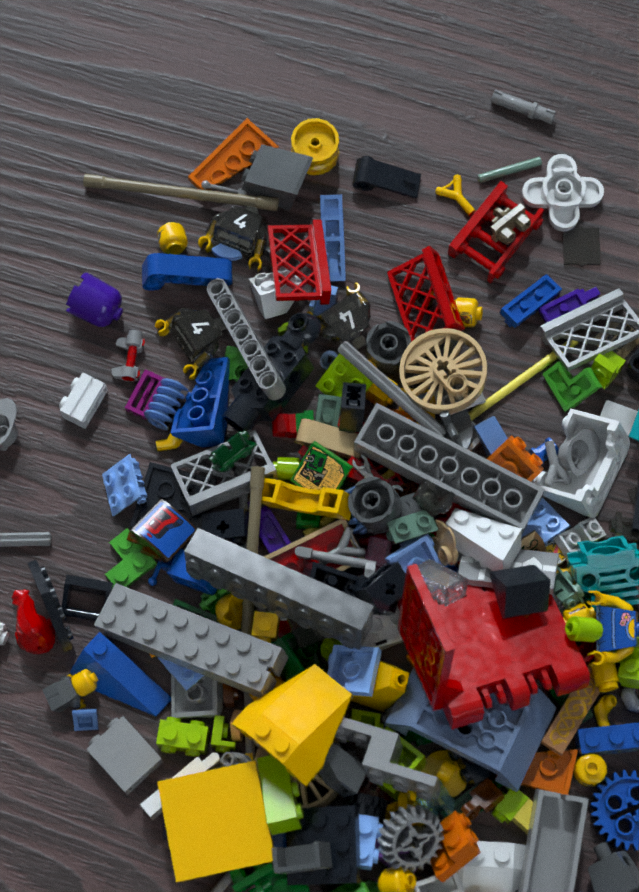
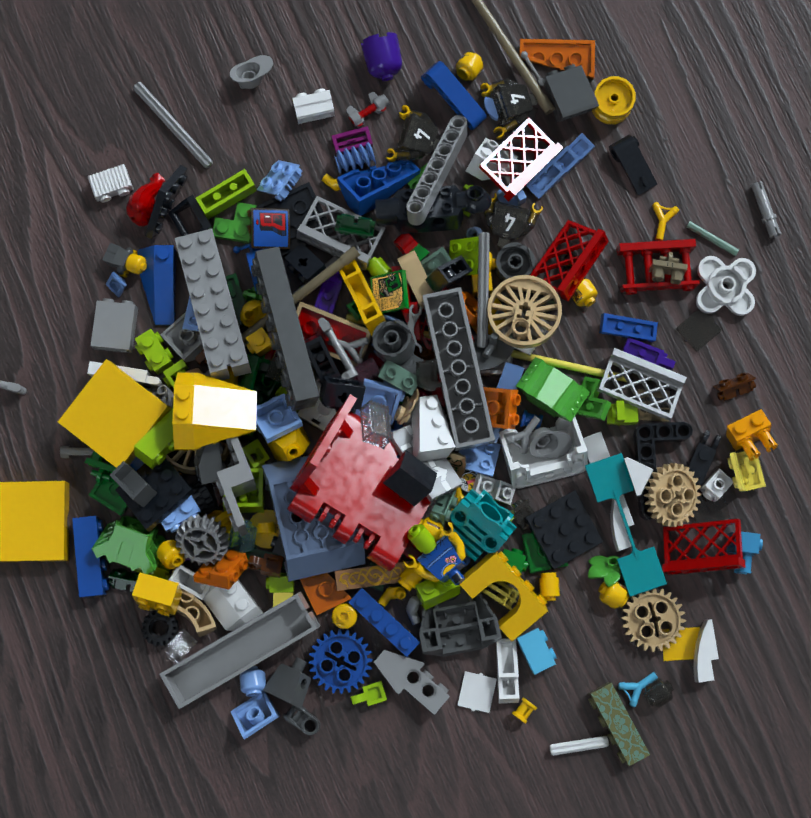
camera: 45 degrees right, 10 degrees up
(94, 543) = (226, 194): none -> lime brick
(534, 409) = (552, 390): none -> bright green slope

